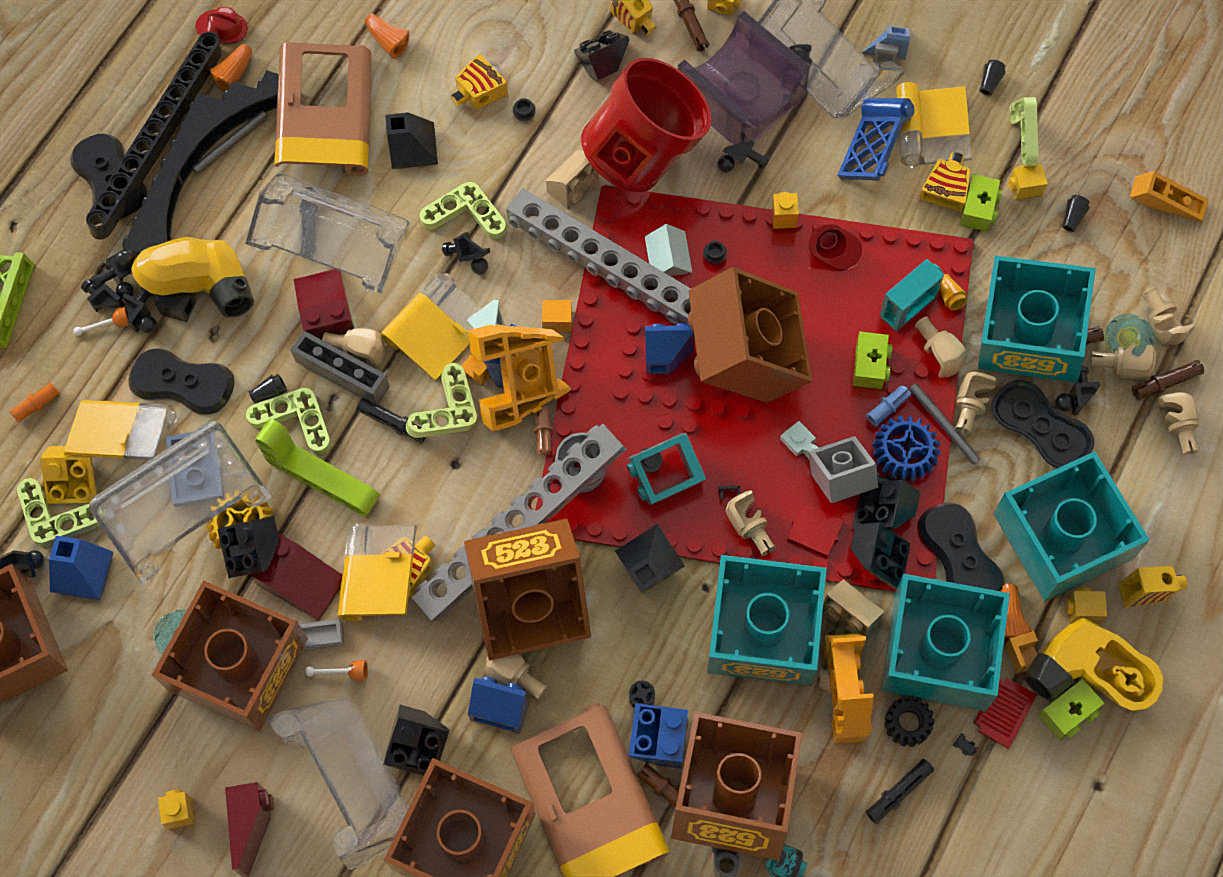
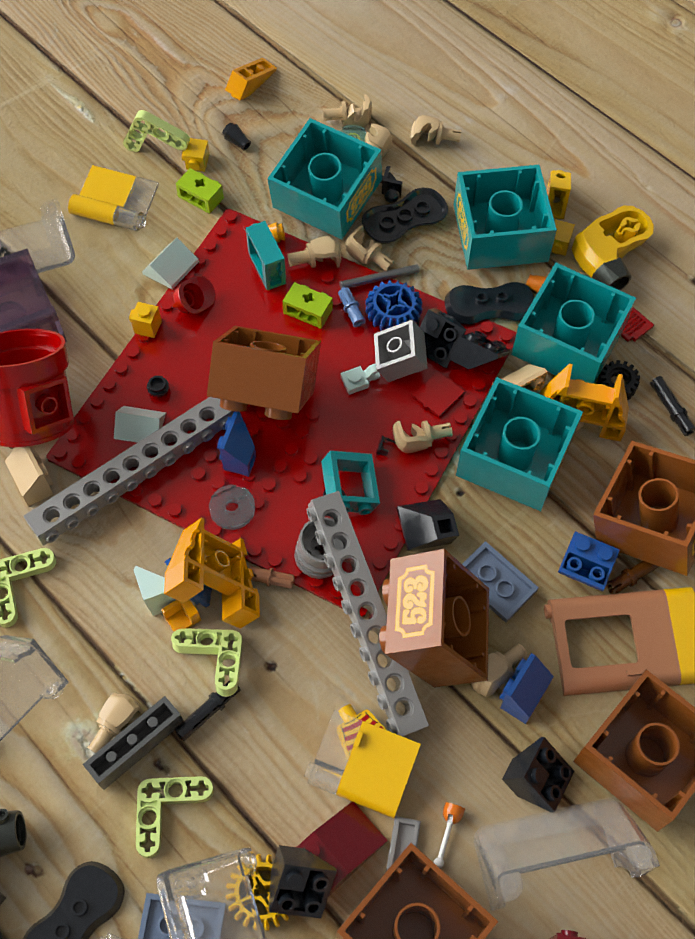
camera: 75 degrees left, 5 degrees down
(267, 389) = (124, 825): black cone -> none
(284, 455) = (208, 823): lime beam -> none
(323, 303) = (52, 743): dark red slope -> none
(433, 325) = (124, 641): yellow door -> none
(467, 251) = (61, 588): black piece -> none
(557, 315) = (163, 529): light orange panel -> none
(604, 382) = (236, 518): none -> clear light blue tile
(611, 649) = (507, 585): none -> sand blue plate
(641, 690) = (548, 564): black wheel -> none
(740, 152) = (73, 335): black piece -> none
(868, 211) = (171, 264): none -> light aqua slope
(882, 114) = (92, 219): blue piece -> none
(885, 52) = (32, 207): light grey tile -> none
(895, 36) = (23, 200): medium blue slope -> none
(947, 183) = (173, 204): torso -> none
(967, 747) = (645, 352): black piece -> none
(992, 75) = (89, 145): black cone -> none
(1079, 697) = (644, 279): lime brick -> none
(1159, 383) = (397, 131): reddish brown pin -> none

